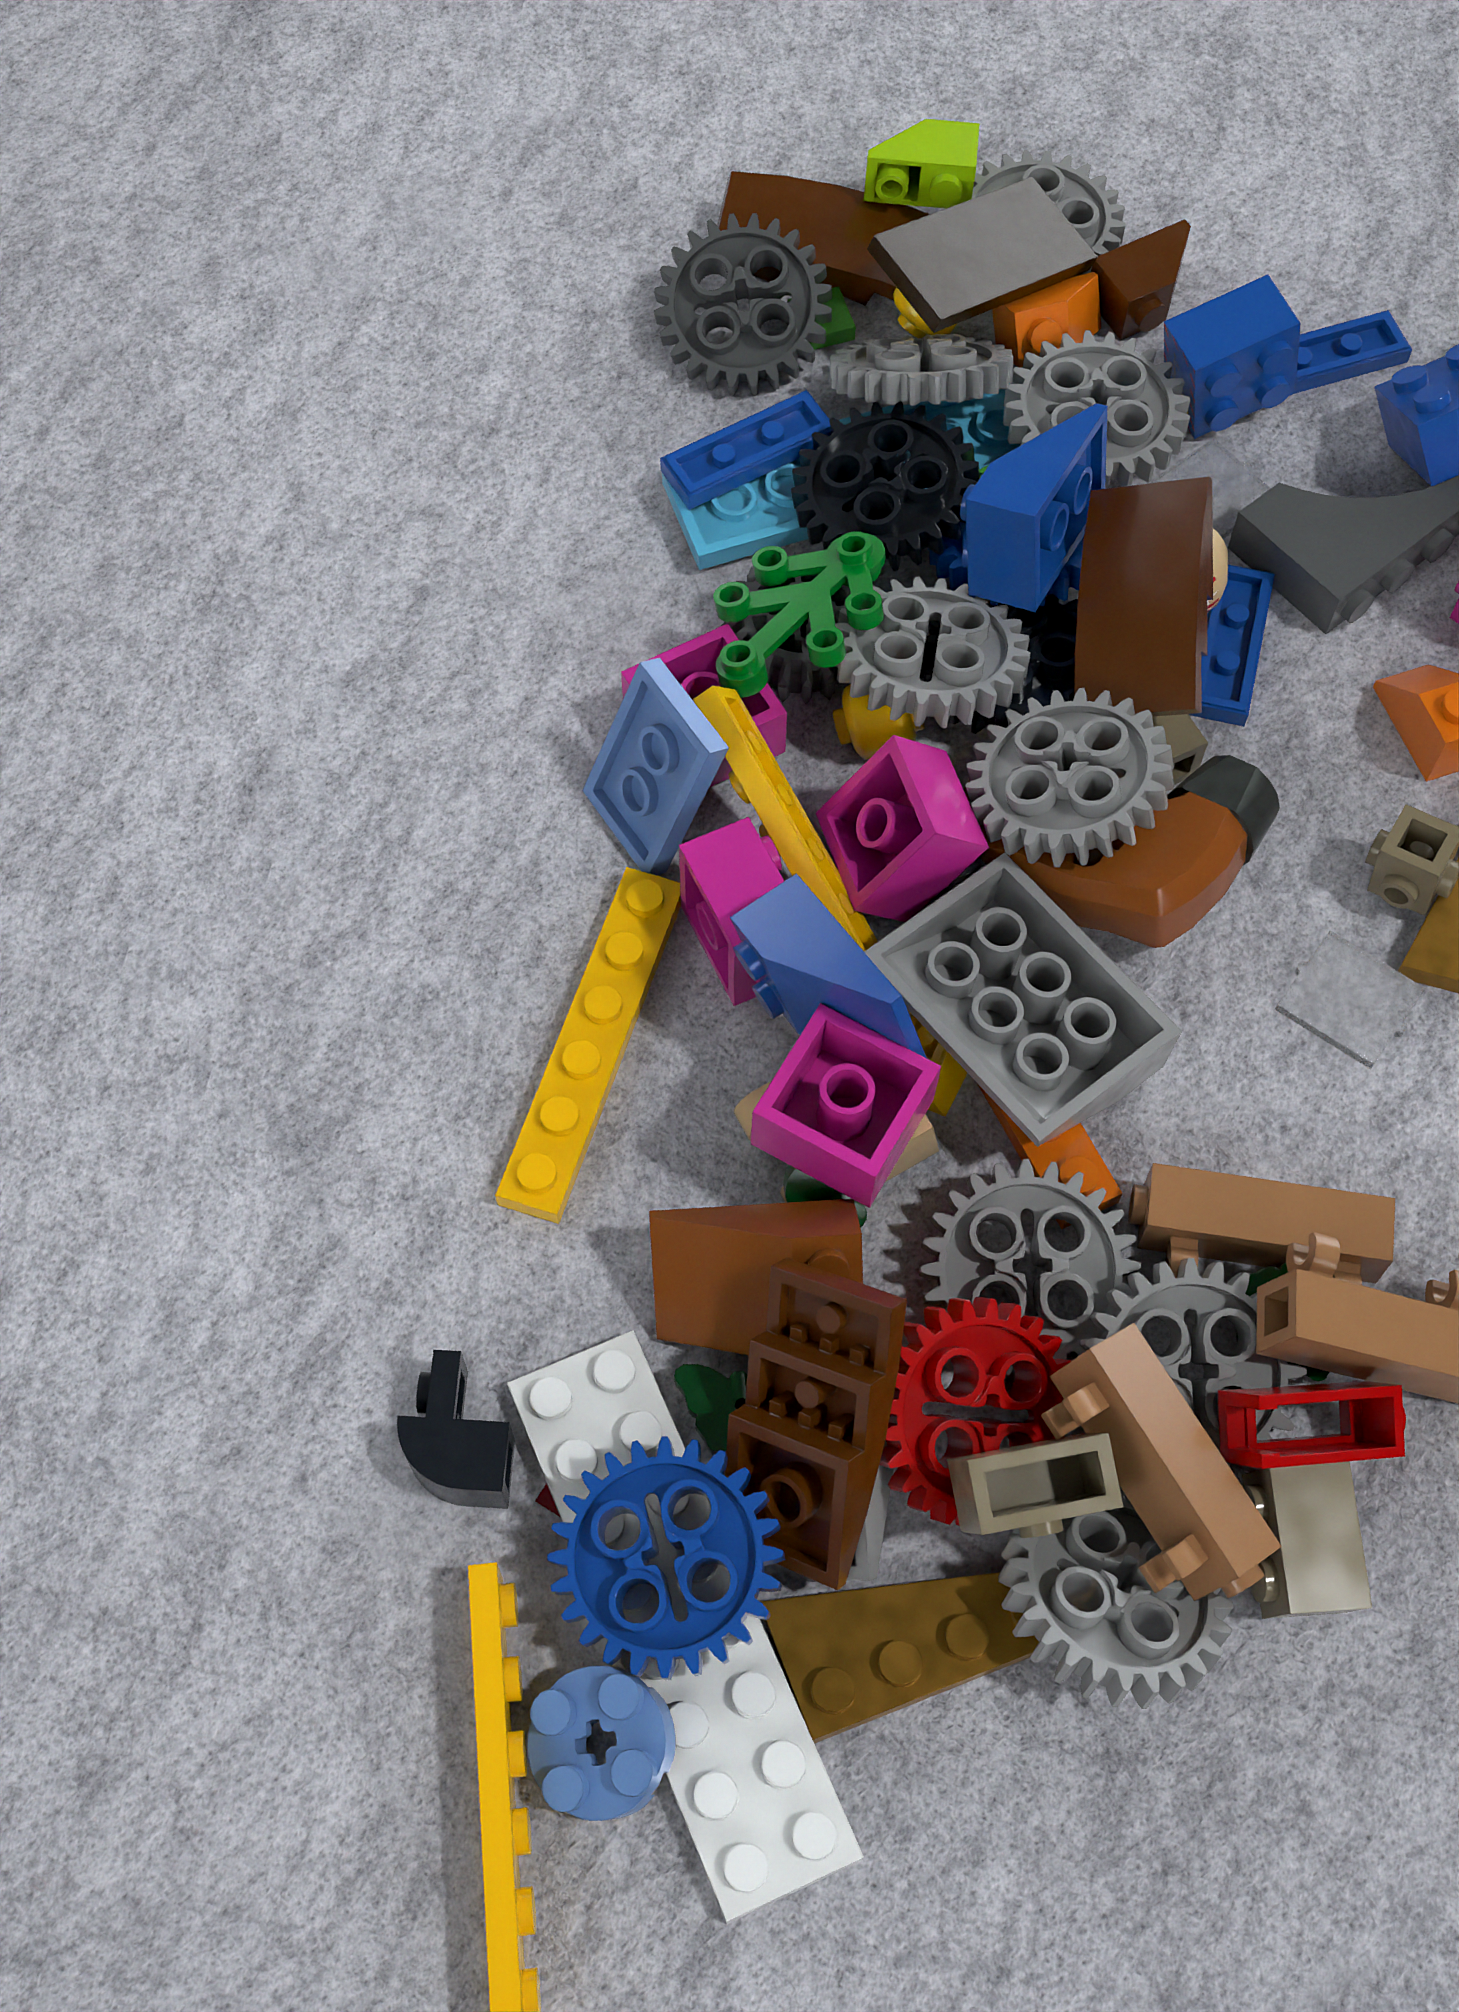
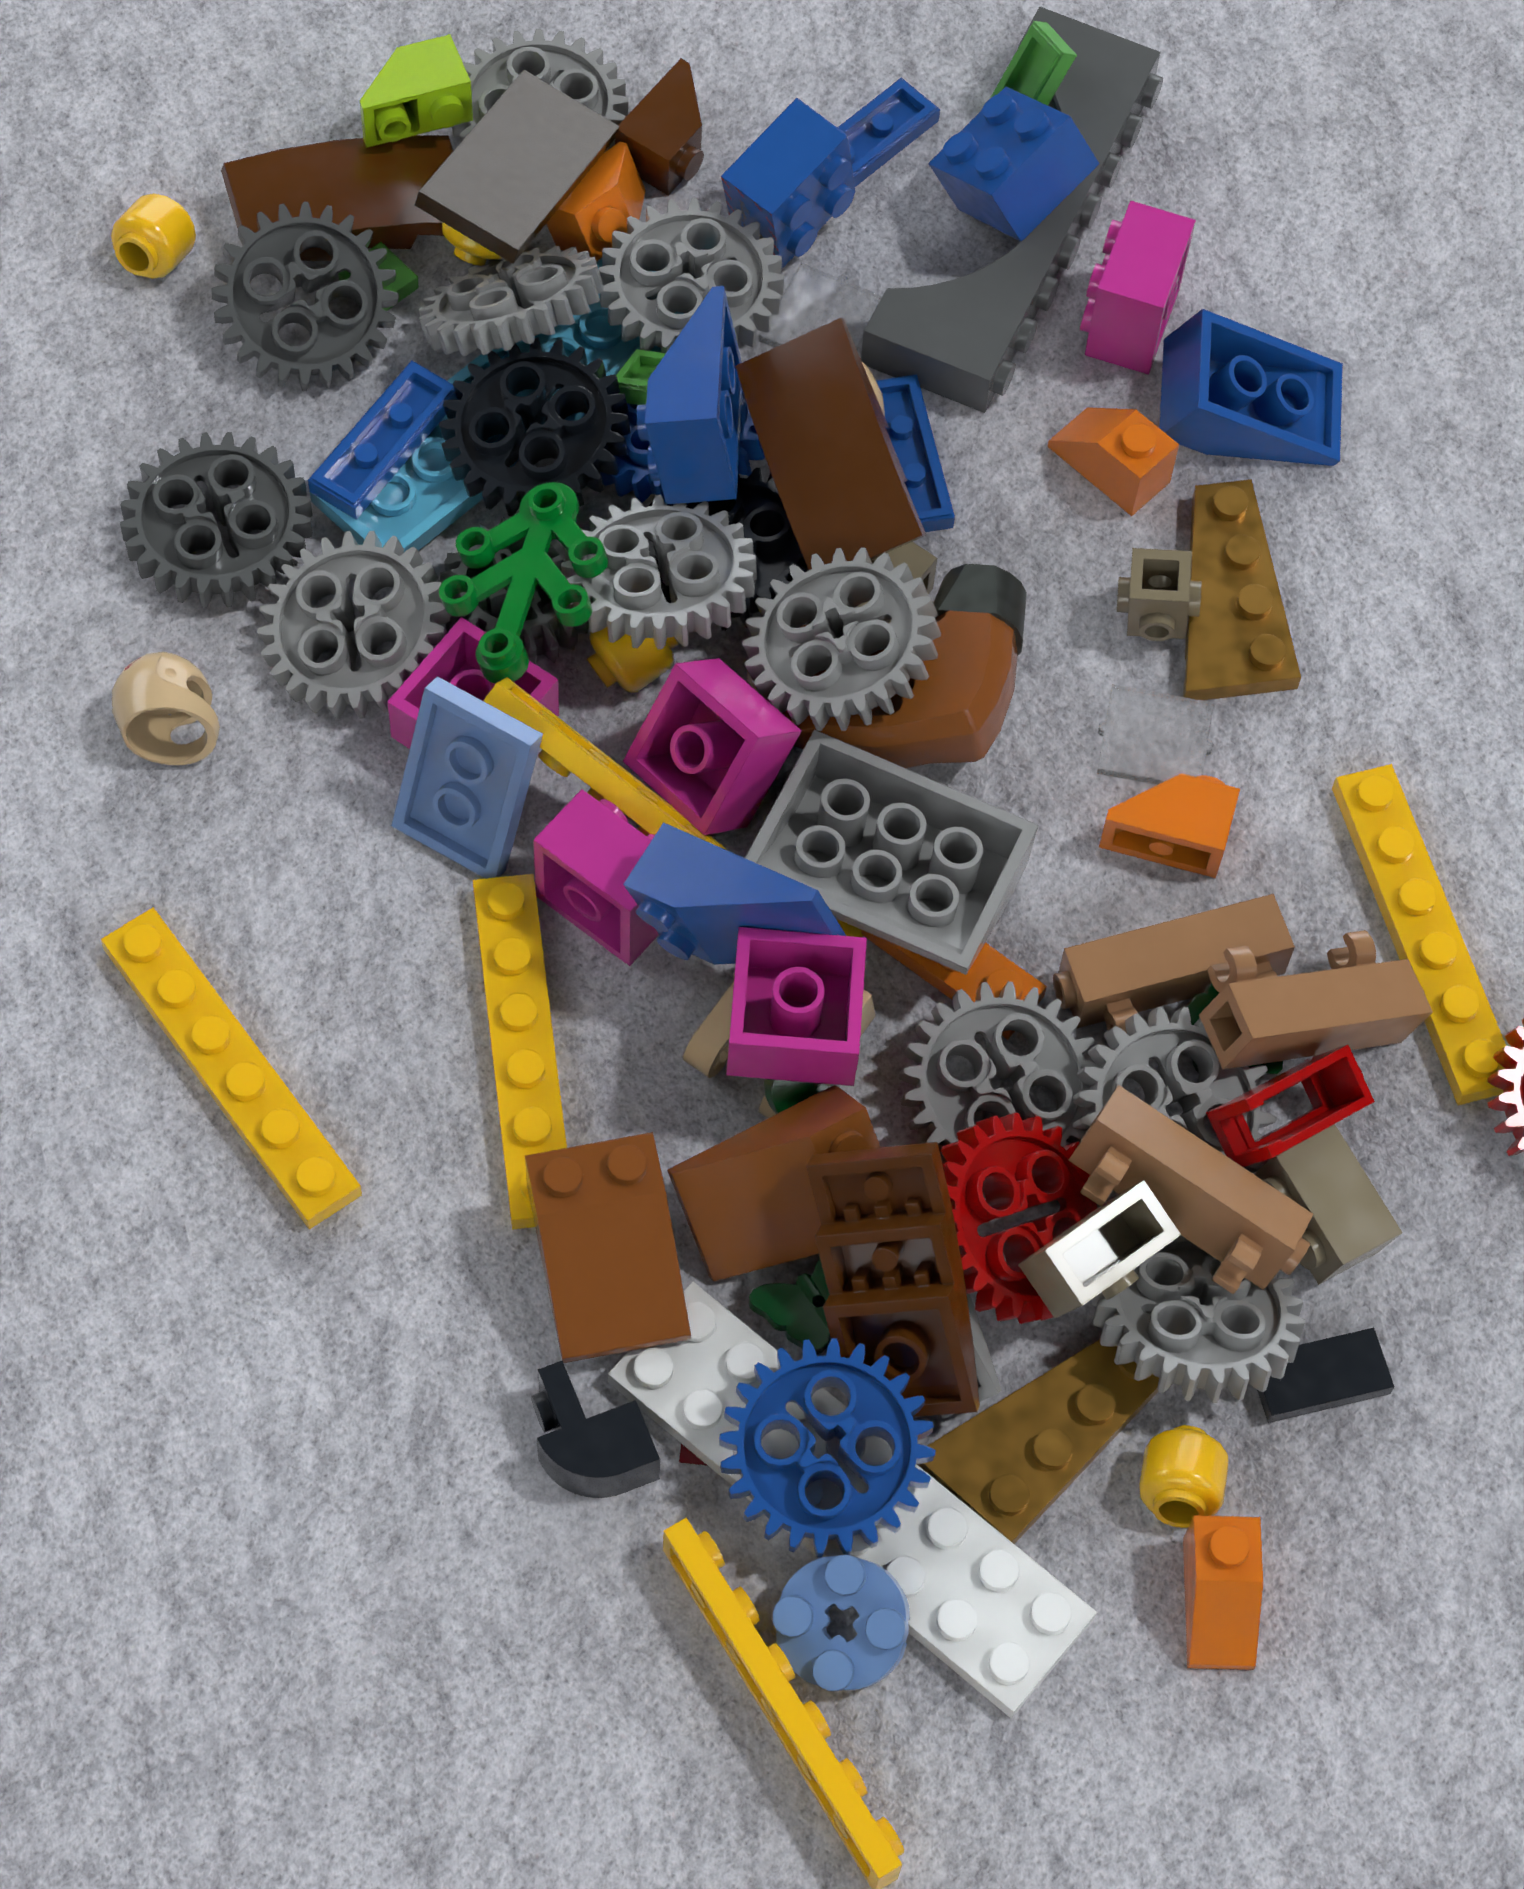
camera: 30 degrees left, 0 degrees up
(325, 951) = (232, 1068): none -> yellow plate
(430, 597) = (148, 693): none -> tan helmet
(526, 466) = (166, 537): none -> dark grey gear
(558, 1260) = (607, 1247): none -> dark orange slope
(628, 588) = (302, 632): none -> light grey gear
(642, 213) = (153, 236): none -> yellow head
(1004, 1902) = (1222, 1591): none -> orange slope
(1021, 1757) = (1183, 1475): none -> yellow head
(1228, 1721) = (1329, 1376): none -> black tile
(1328, 1088) = (1175, 823): none -> orange slope

